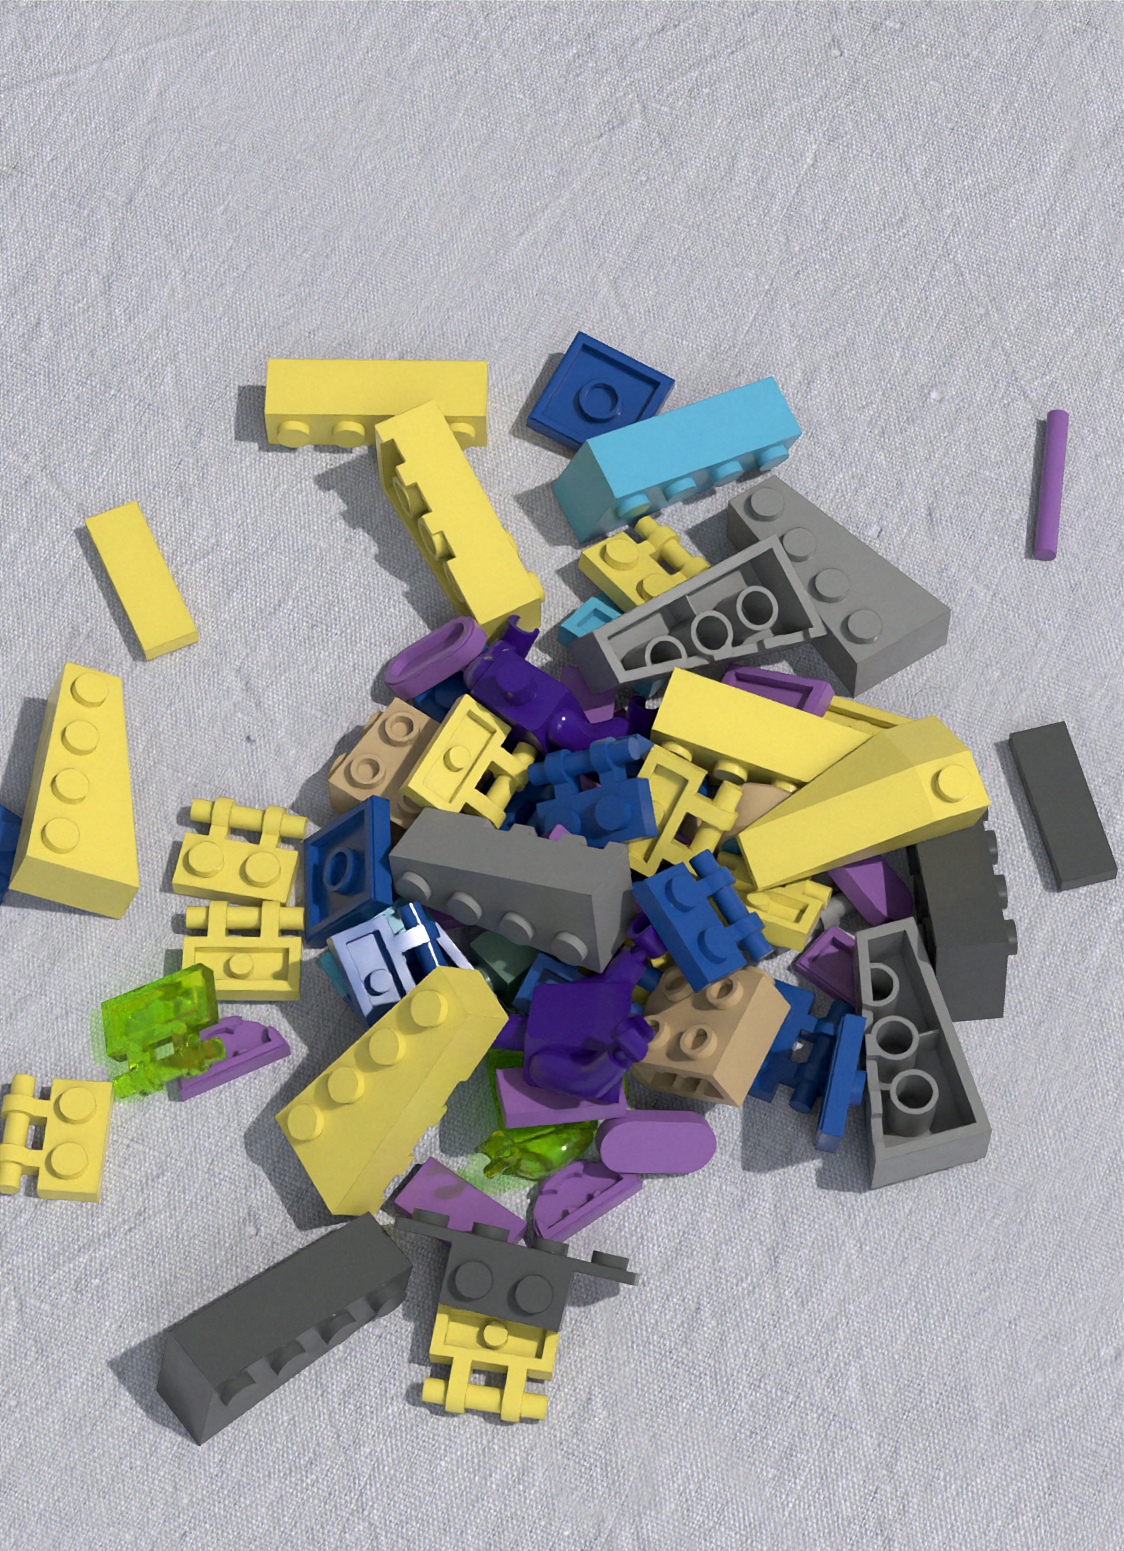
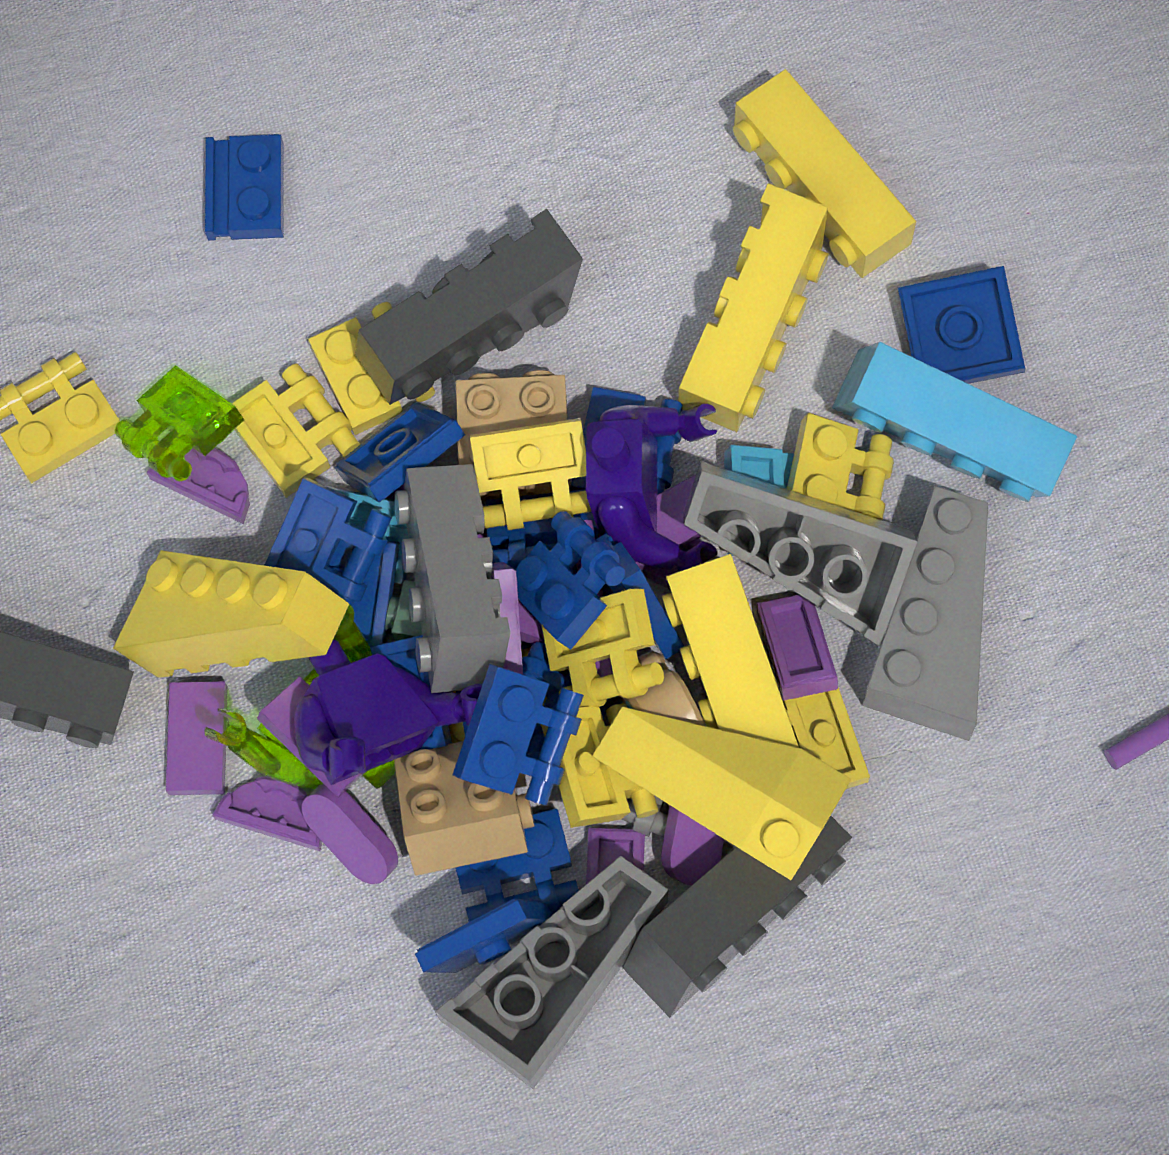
camera: 55 degrees right, 10 degrees up
(79, 807) = (307, 227): light yellow wedge -> none
(141, 580) = (542, 129): light yellow tile -> none
(276, 727) = (472, 312): none -> dark grey wedge
(435, 657) = (631, 377): medium lavender tile -> none
(494, 1345) = (112, 836): light yellow plate -> none
(507, 1278) = (159, 808): dark grey bracket -> none
(1062, 806) = (889, 933): dark grey tile -> none

